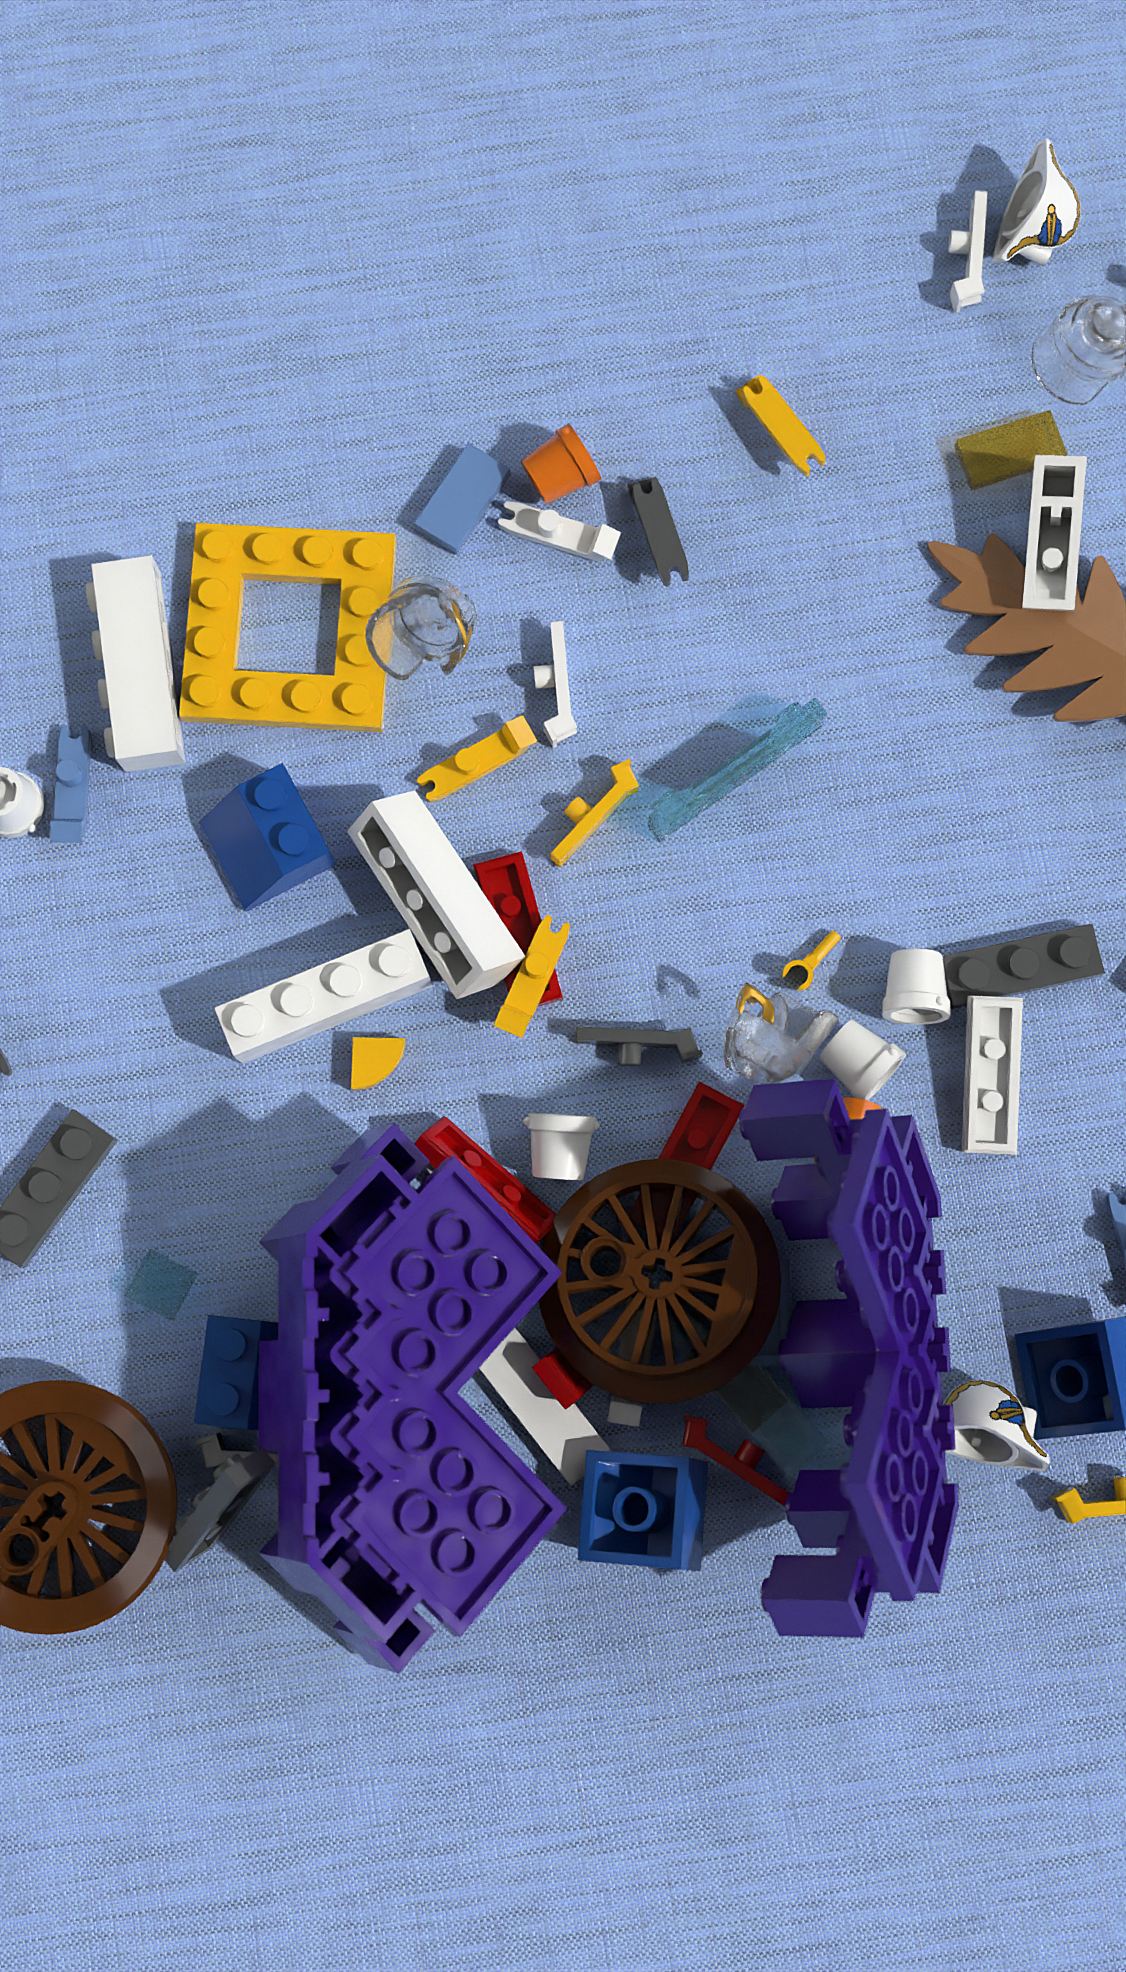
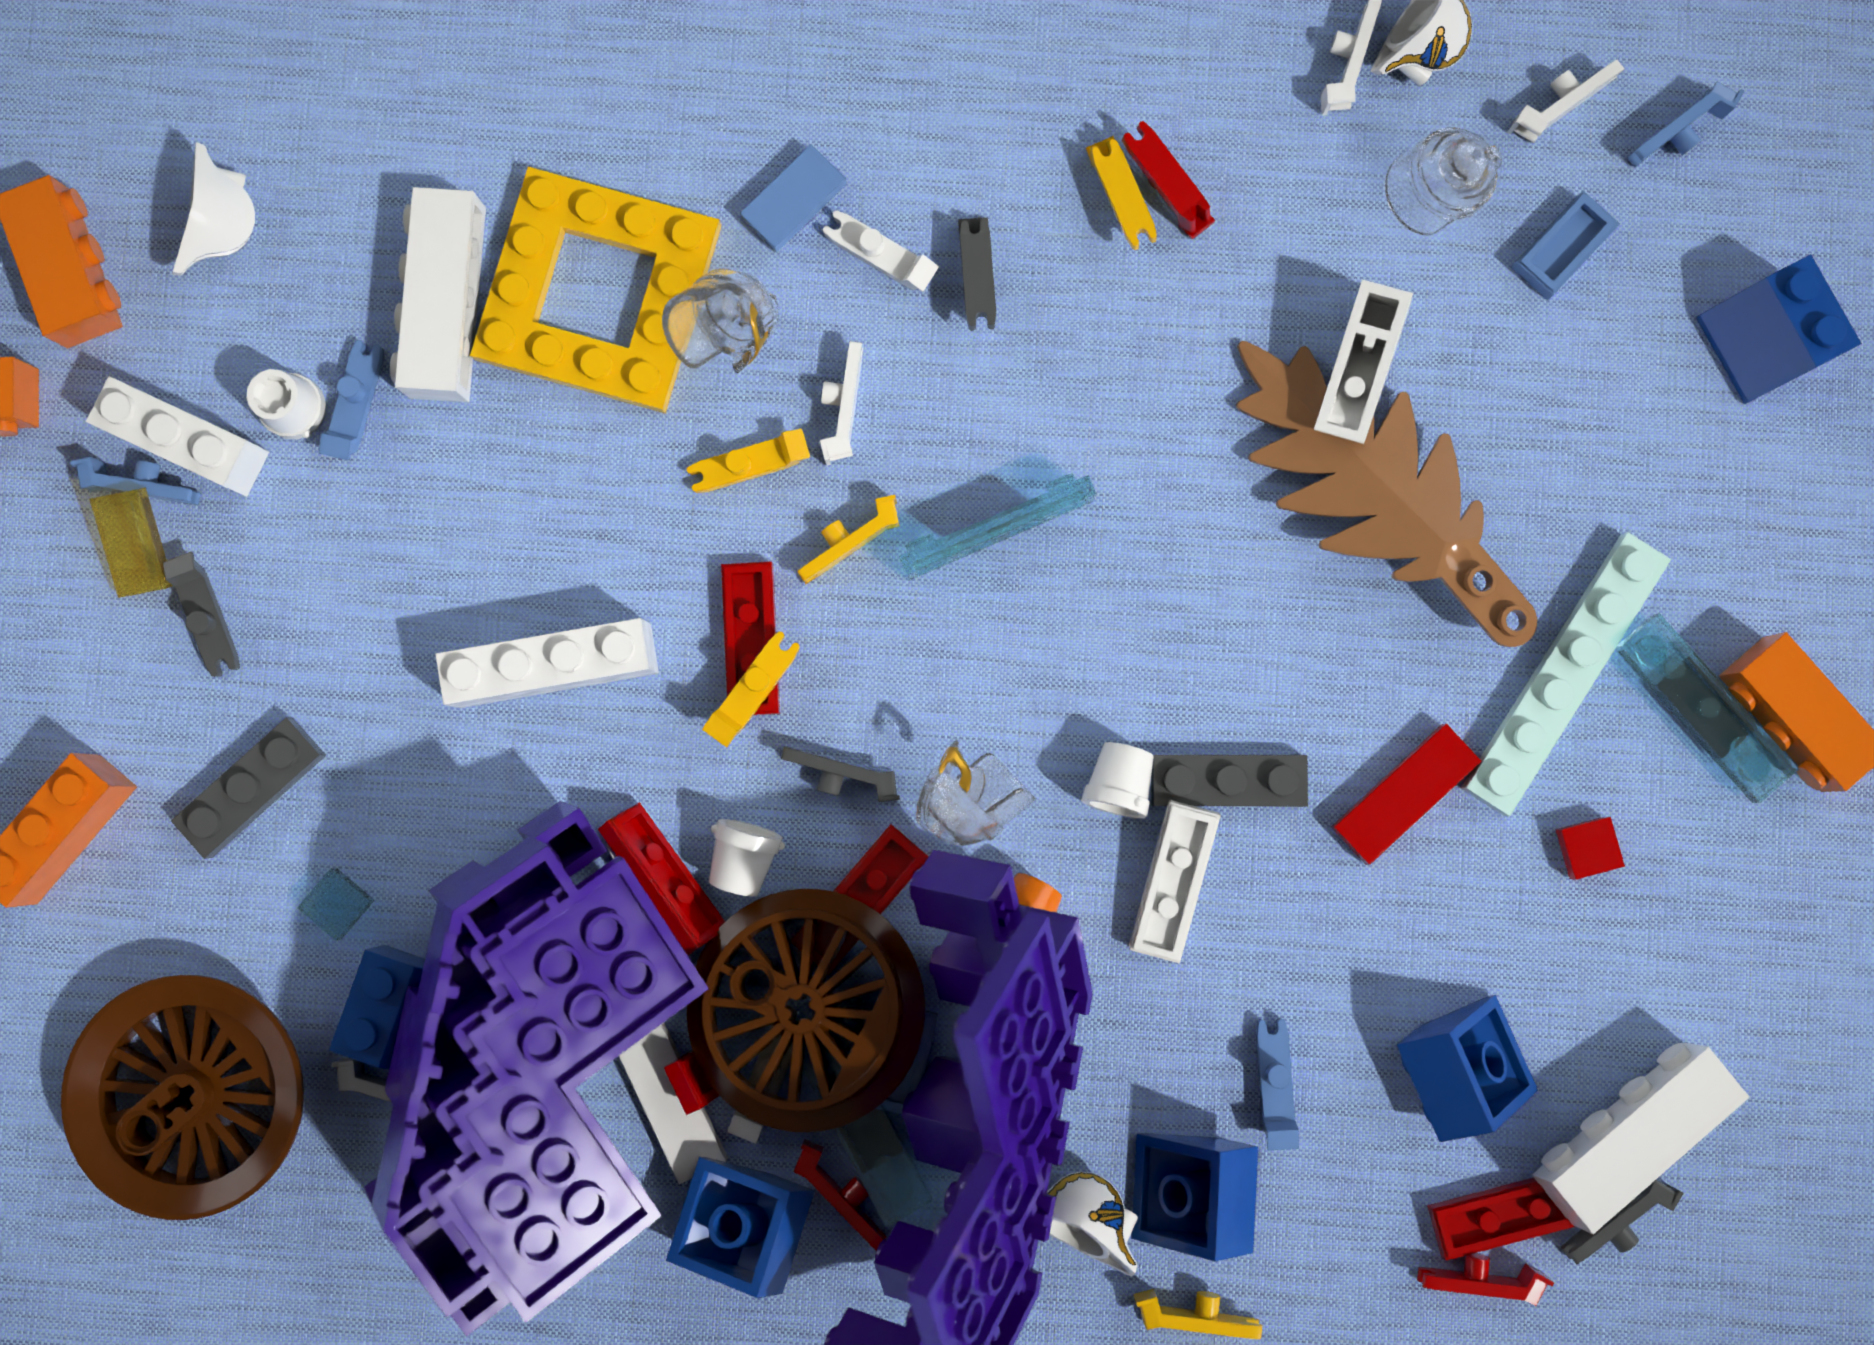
camera: 15 degrees right, 5 degrees up
(218, 1506) = (333, 1136): dark grey plate -> none
(266, 838) = (529, 494): blue slope -> none
(374, 1060) = (584, 734): yellow tile -> none
(435, 894) = (675, 587): white brick -> none
(560, 466) = (894, 187): orange piece -> none
(813, 959) = (1029, 729): yellow hand -> none
(824, 403) = (1169, 180): none -> red piece
(861, 1059) = (1050, 839): white piece -> none
(1008, 449) = (1341, 265): clear yellow tile -> none

